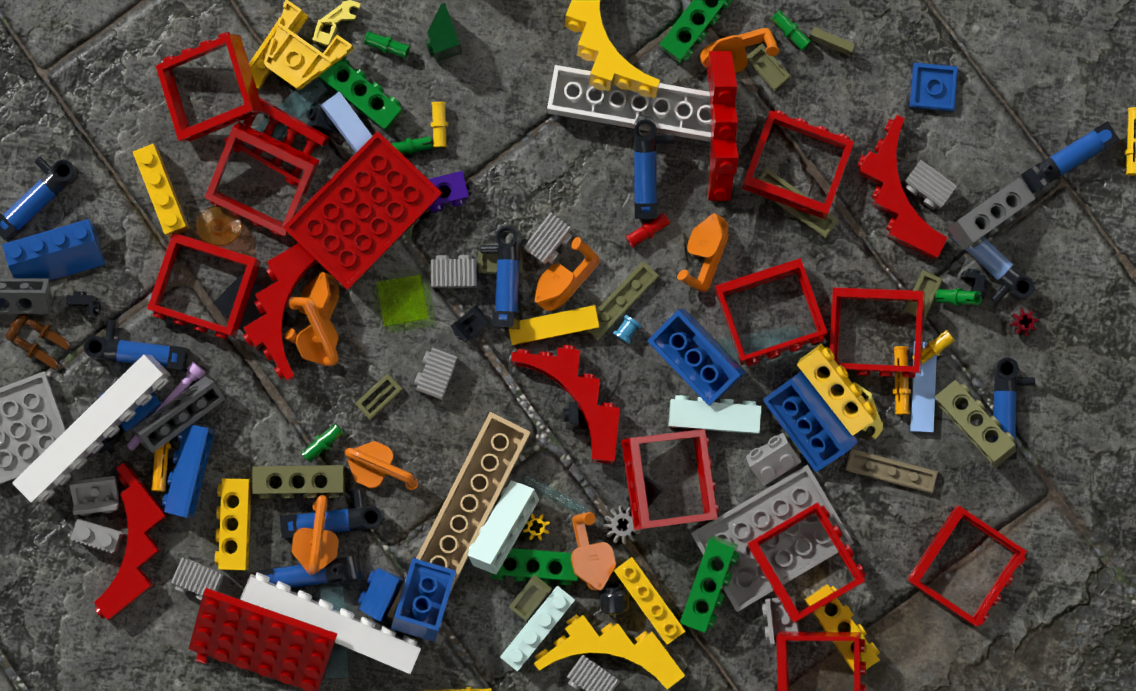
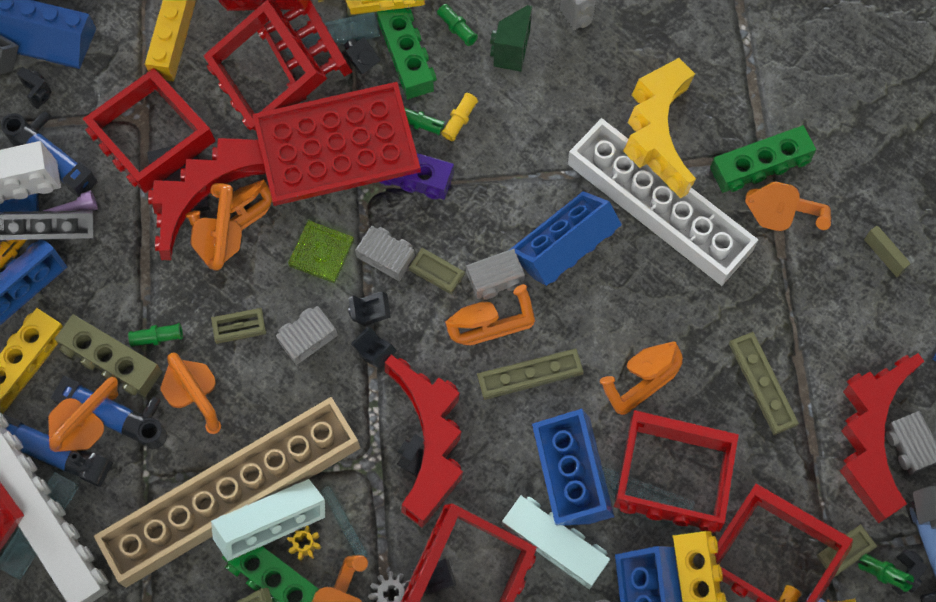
camera: 30 degrees right, 15 degrees down
(218, 217) = (199, 88): clear orange dish -> none
(346, 121) = (375, 59): light blue tile -> none
(380, 594) = (103, 512): blue slope -> none
(423, 599) = (136, 540): blue slope -> none
(494, 353) = (373, 348): none -> black bracket
(507, 283) = (409, 317): piece -> none
(555, 325) = (449, 357): yellow tile -> none
(582, 176) = (566, 237): none -> blue slope
(627, 329) = (519, 403): dark azure bush -> none
(646, 168) = (631, 258): piece -> none
(647, 230) = (598, 322): red pin -> none
(723, 125) = (730, 264): red arch -> none
(768, 68) = (808, 242): olive tile -> none
(788, 197) = (761, 370): red window -> none
(791, 30) = (851, 220): green pin -> none

